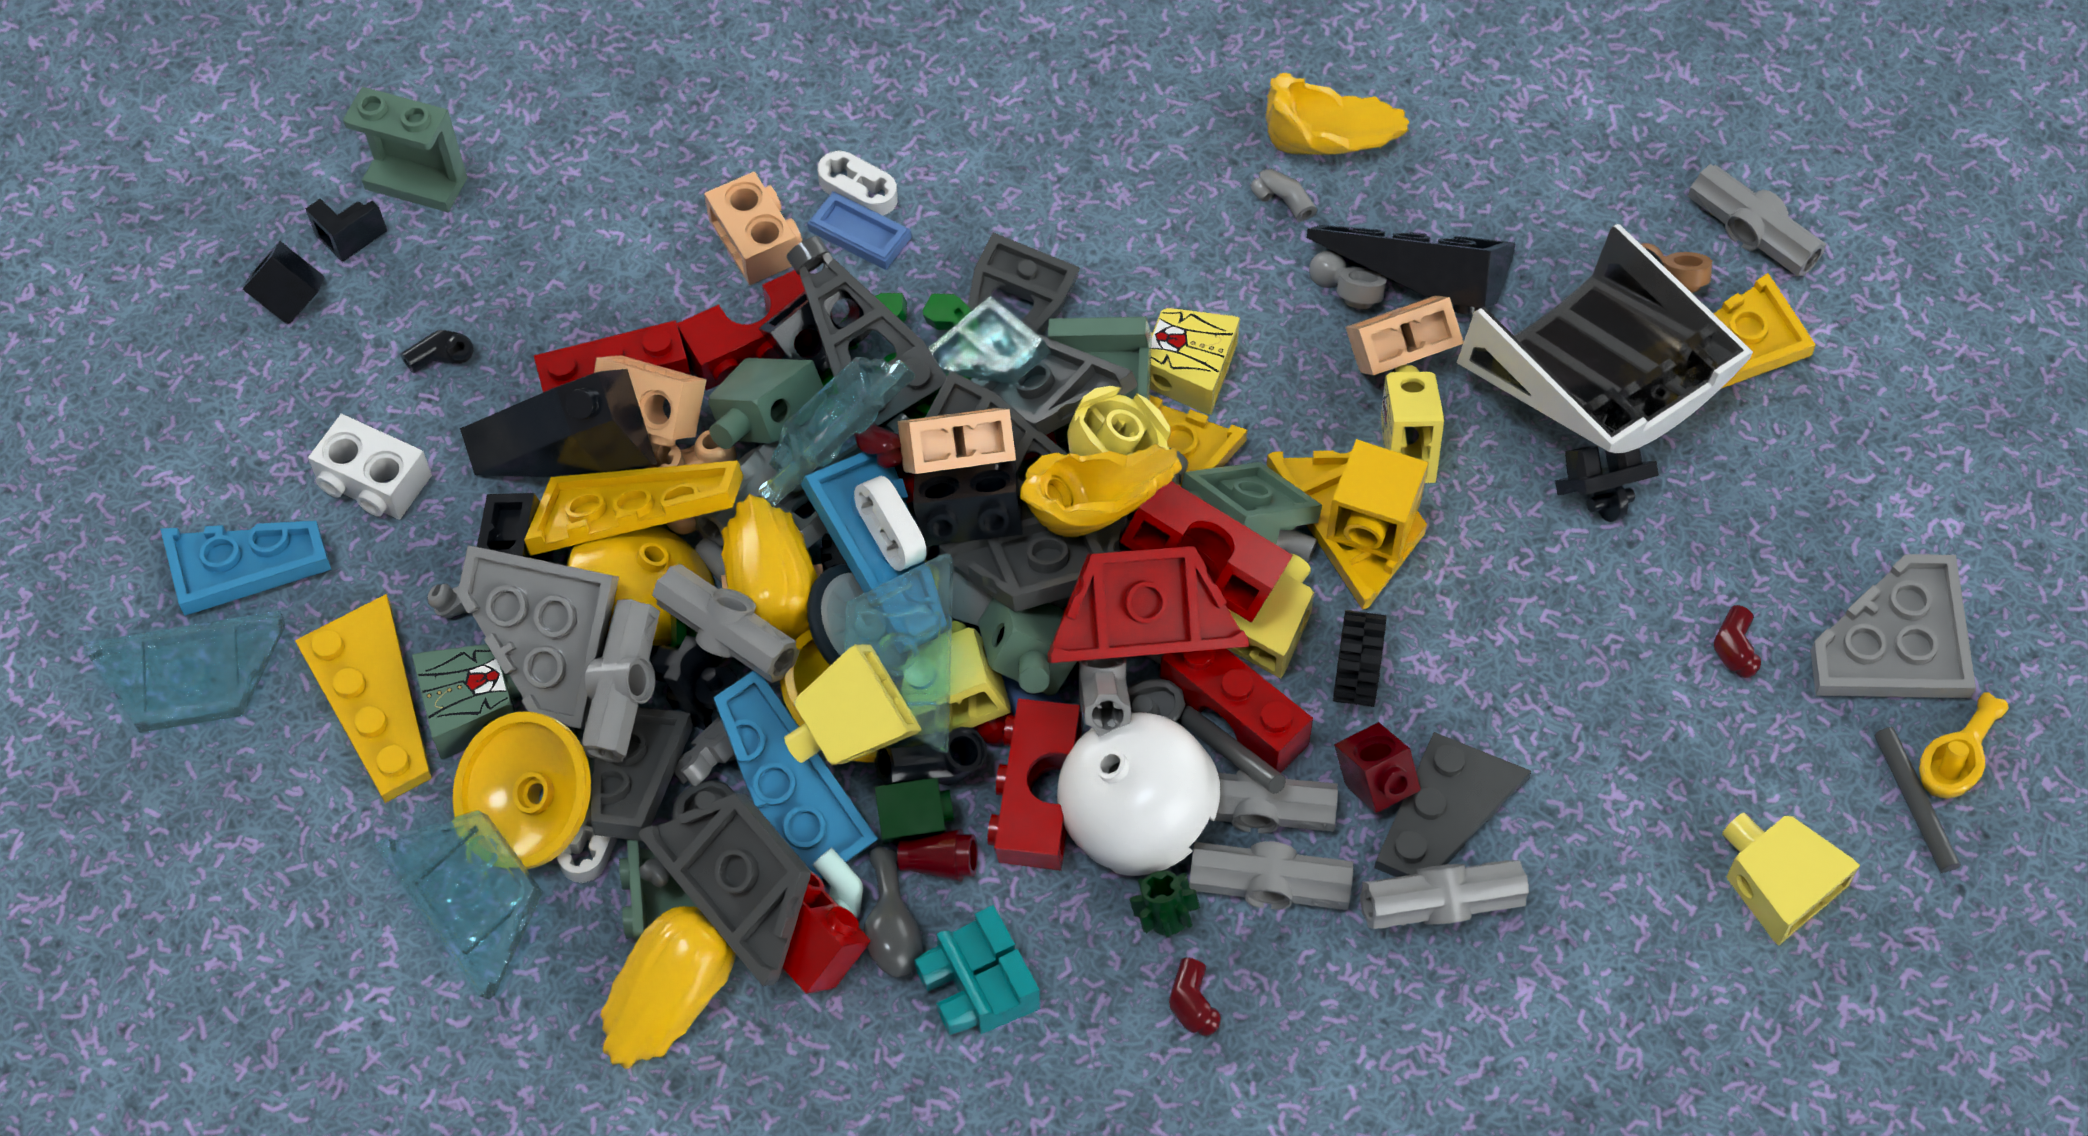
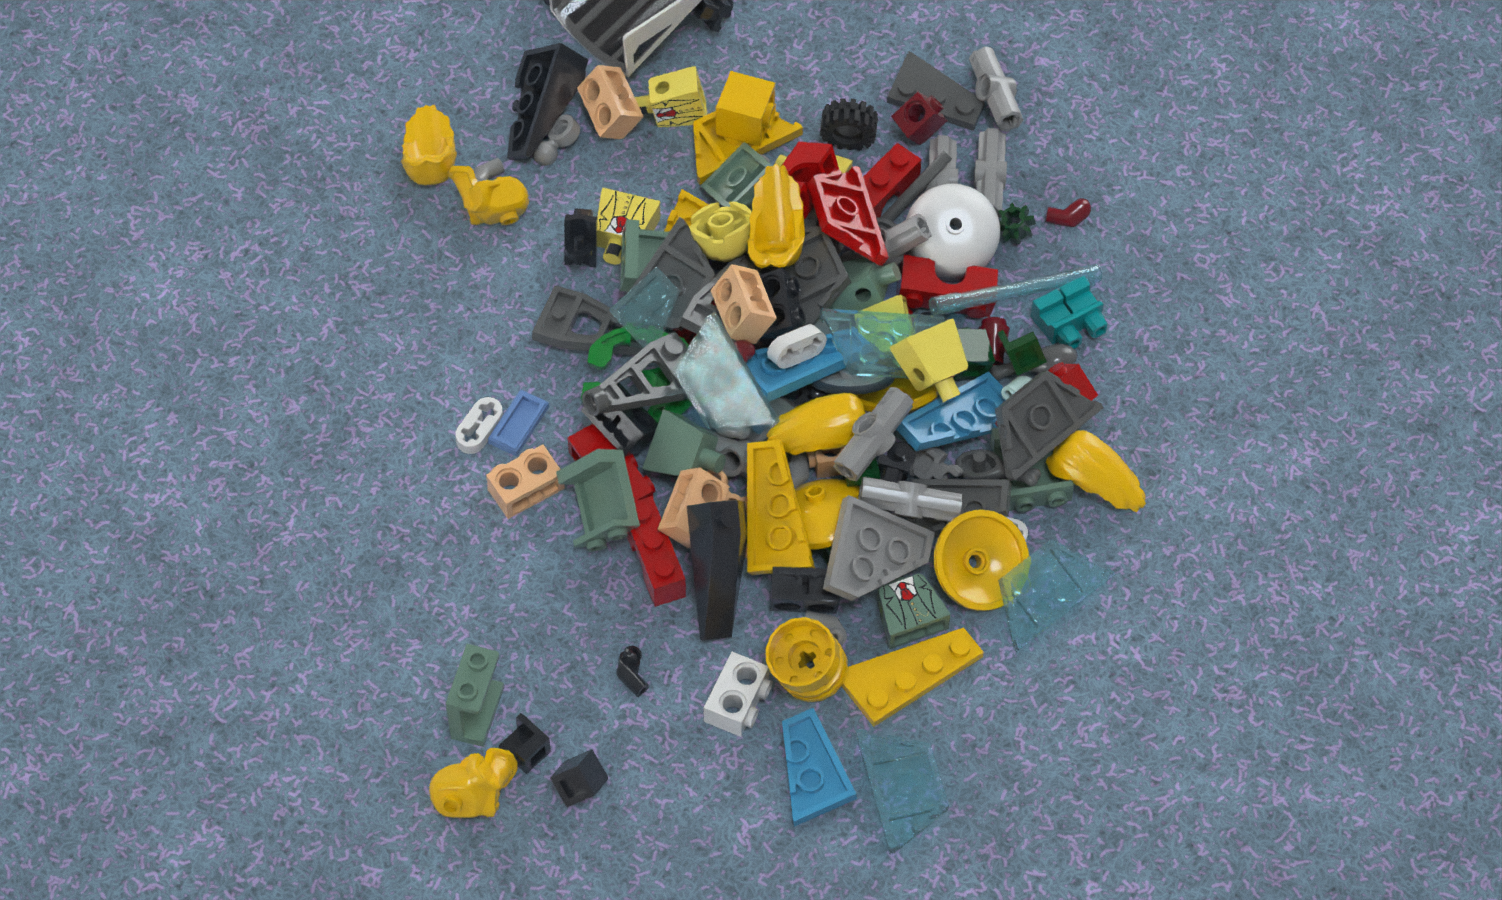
camera: 95 degrees left, 0 degrees up
(279, 158) = (473, 784): none -> yellow head
(386, 540) = (797, 644): none -> yellow wheel
(730, 279) = (602, 497): none -> sand green panel
(892, 877) = (1023, 352): none -> dark green panel
(975, 771) = (958, 301): none -> clear light blue piece
(1149, 291) = (580, 238): none -> black hips
(1226, 185) = (490, 200): none -> yellow head

